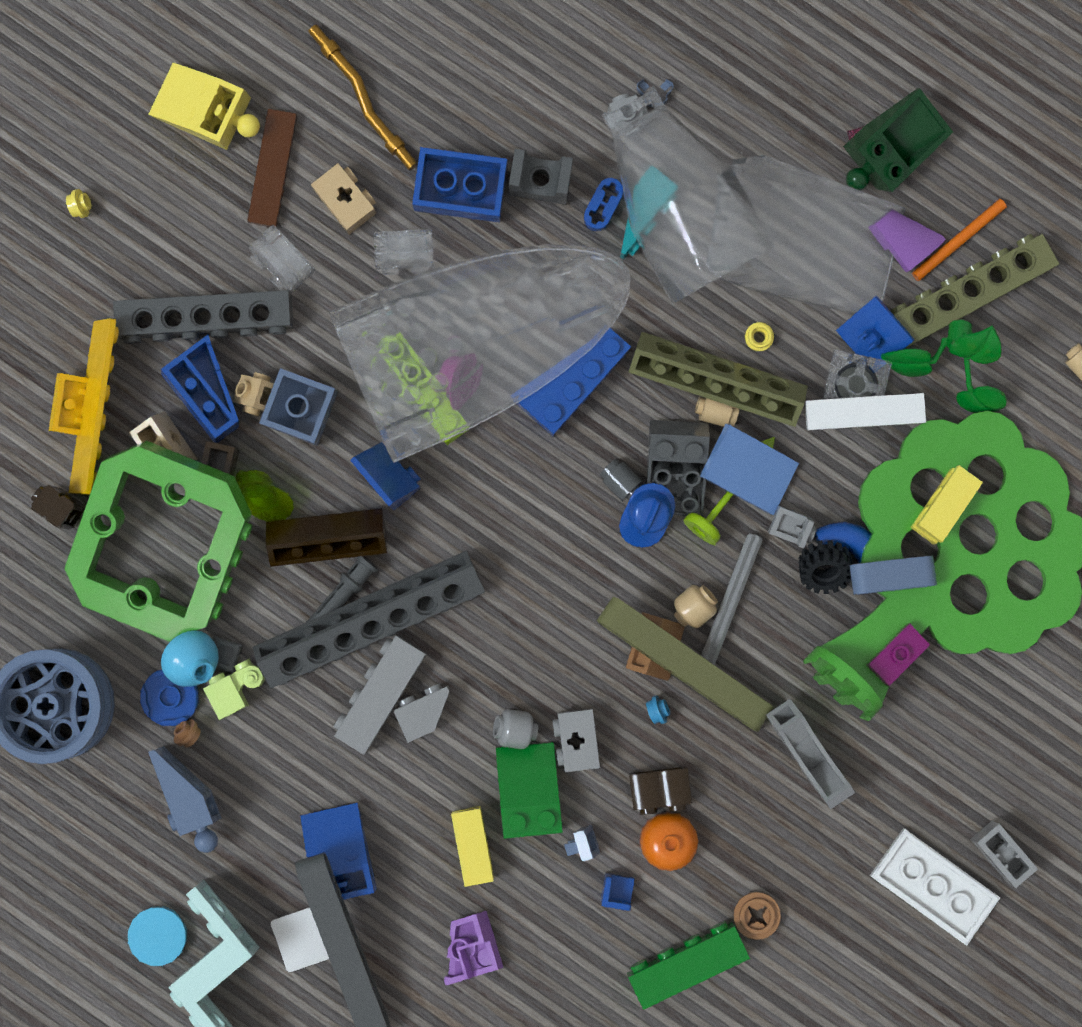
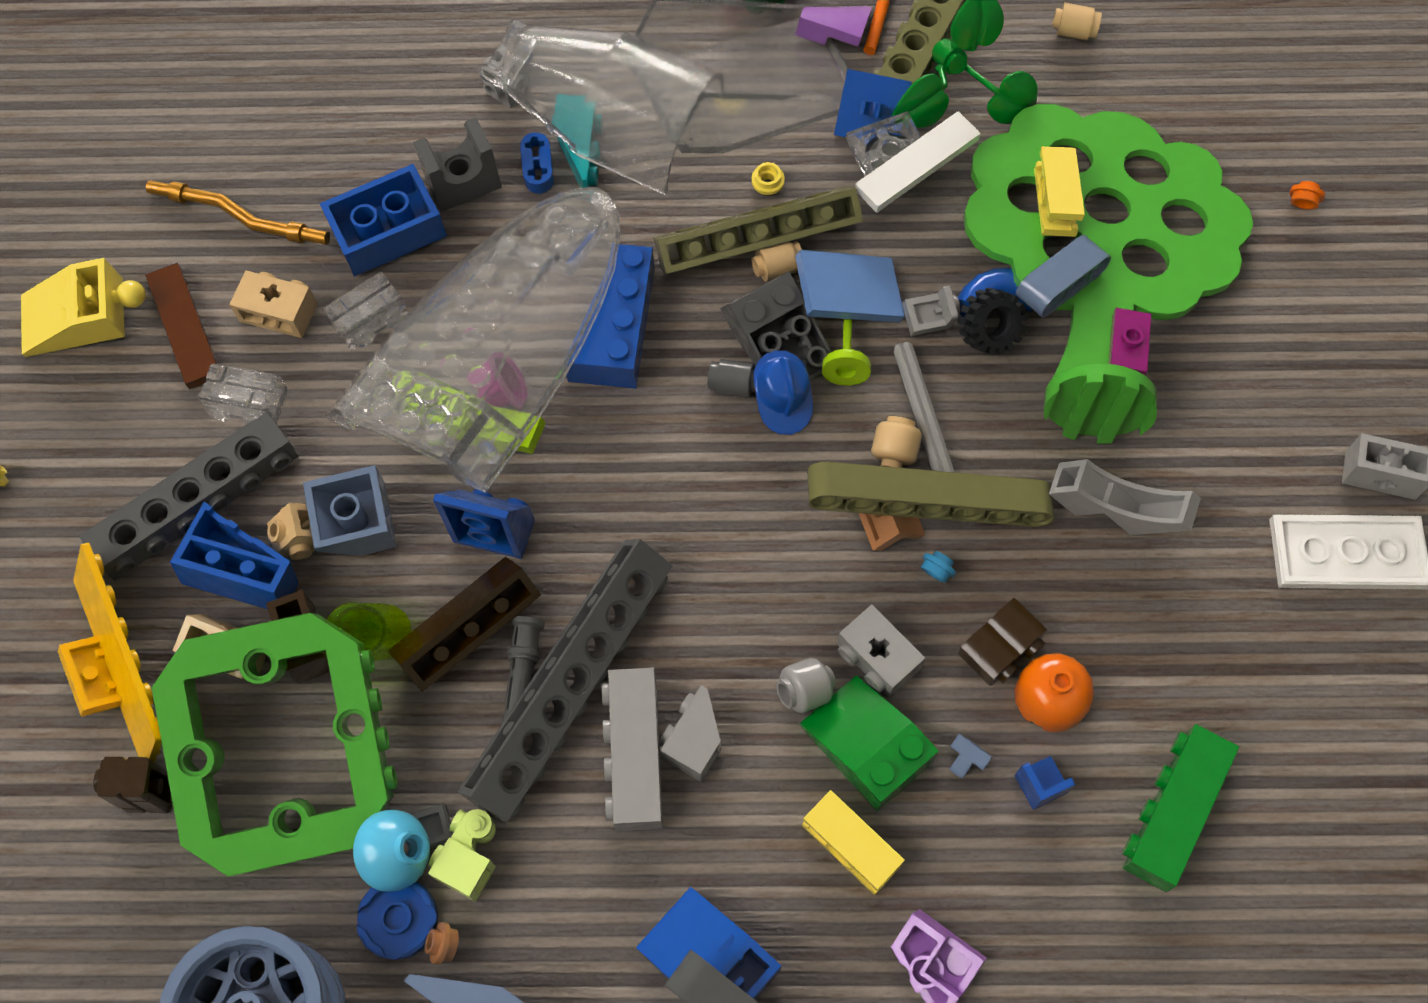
camera: 30 degrees left, 20 degrees down
(771, 914) = (1217, 694): medium nougat gear -> none

